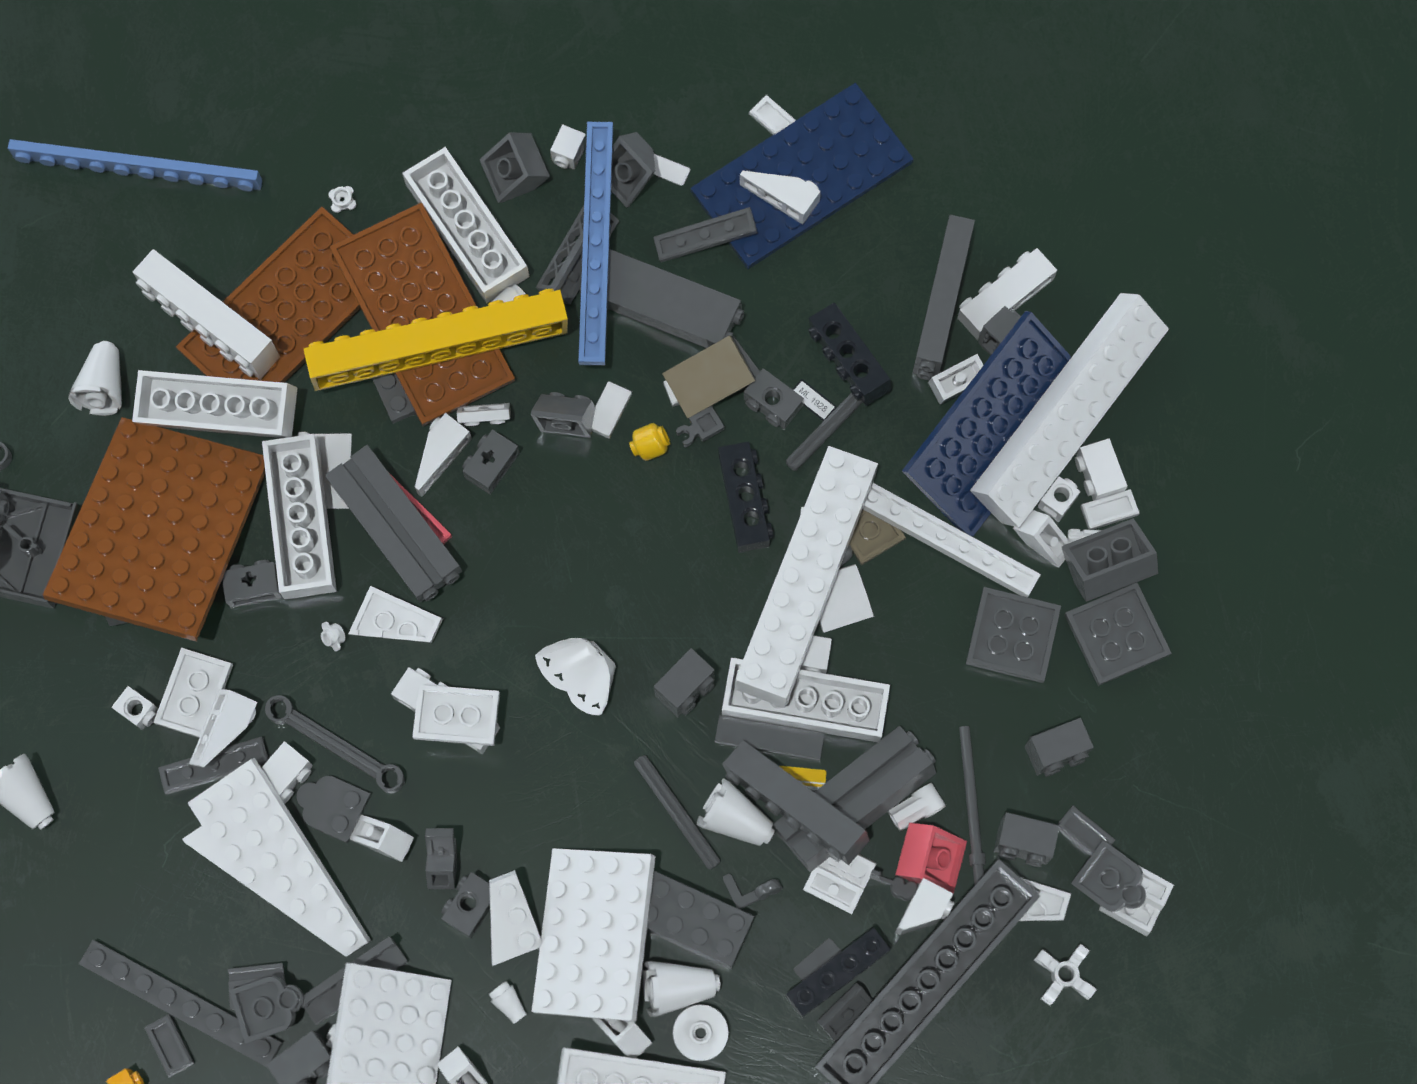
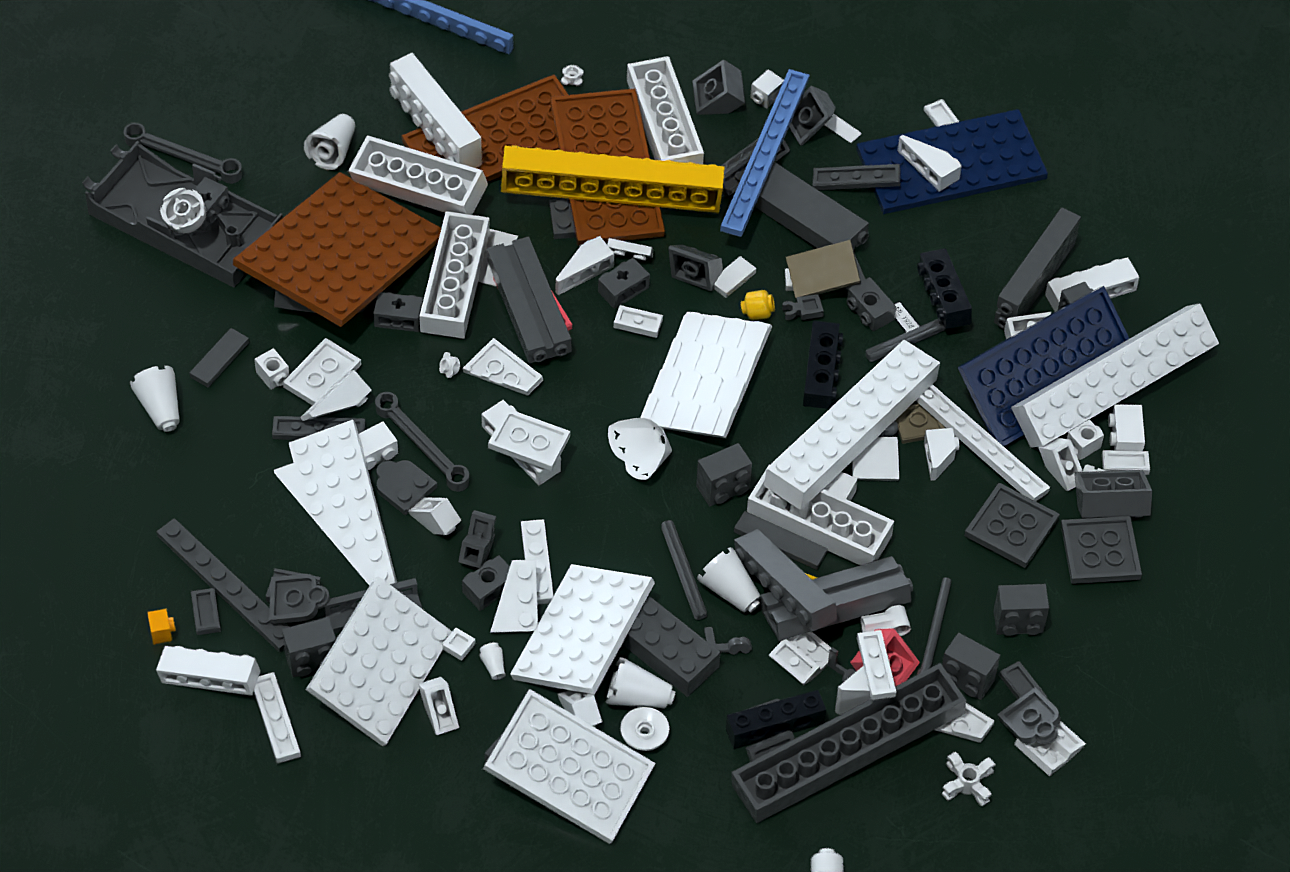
camera: 15 degrees right, 20 degrees down
(70, 709) = (219, 357): none -> dark grey tile
(463, 993) = (458, 644): none -> white plate
(512, 851) = (536, 549): none -> white plate
(523, 506) = (638, 321): none -> white plate
(621, 554) = (706, 374): none -> white piece
(907, 564) = (940, 450): none -> white slope
(932, 890) = (876, 665): none -> white plate

